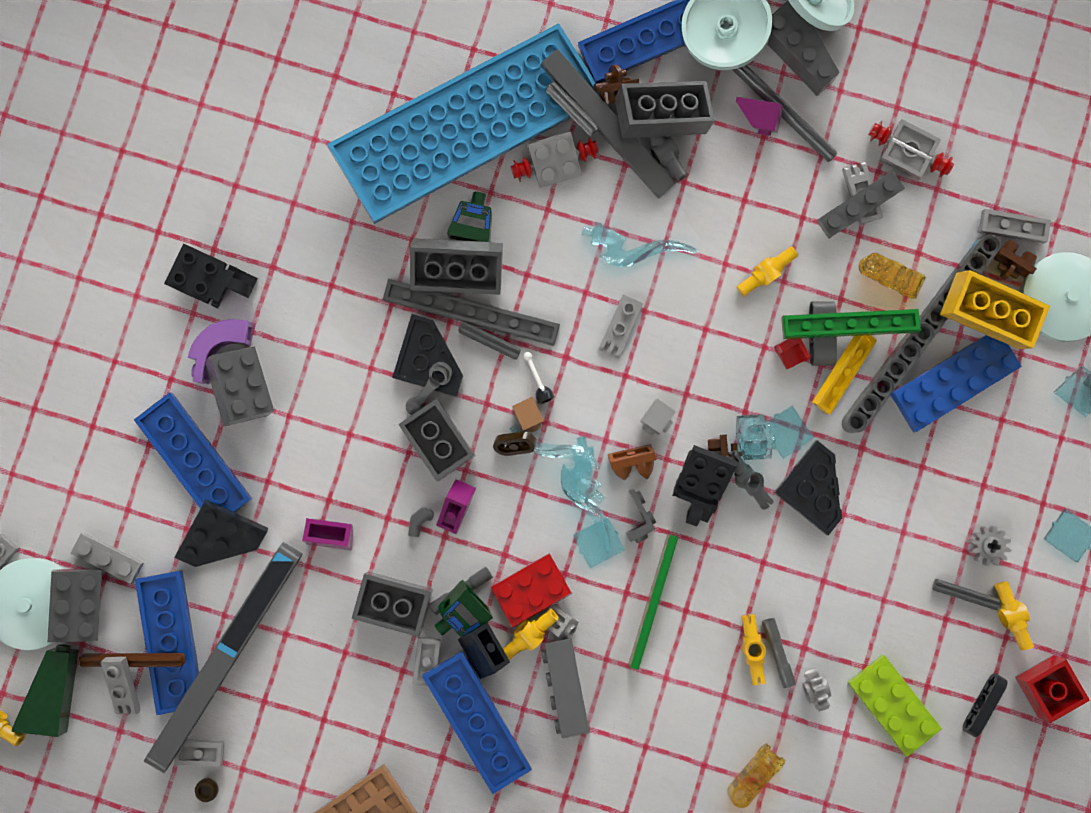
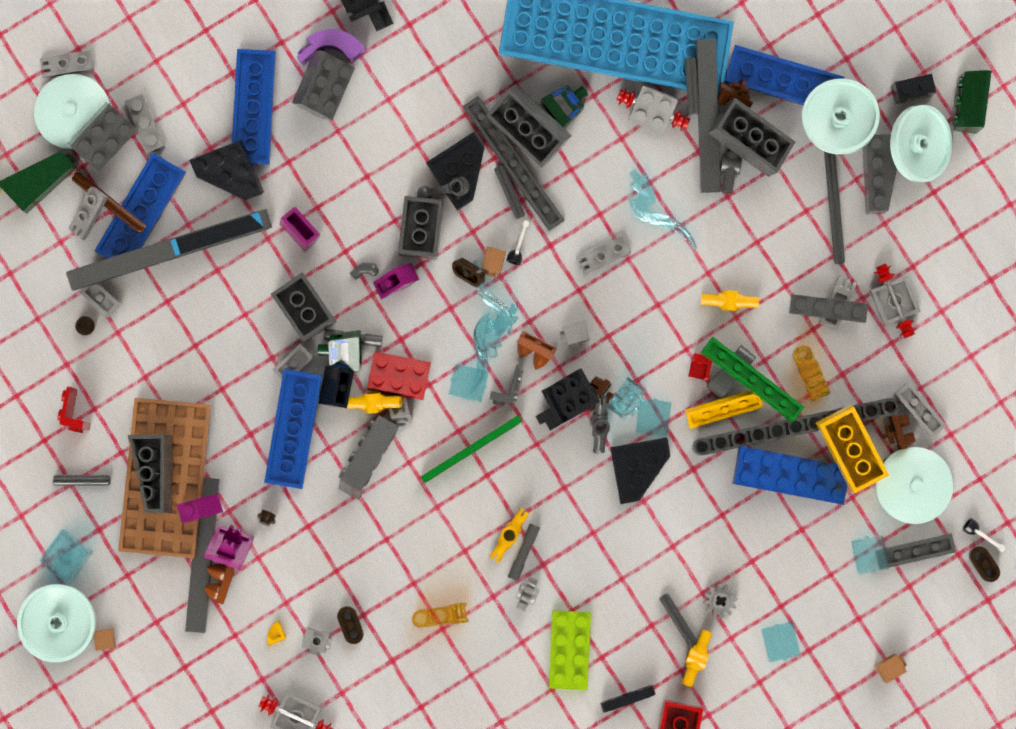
camera: 40 degrees right, 0 degrees up
(761, 114) = (814, 194): magenta slope -> none

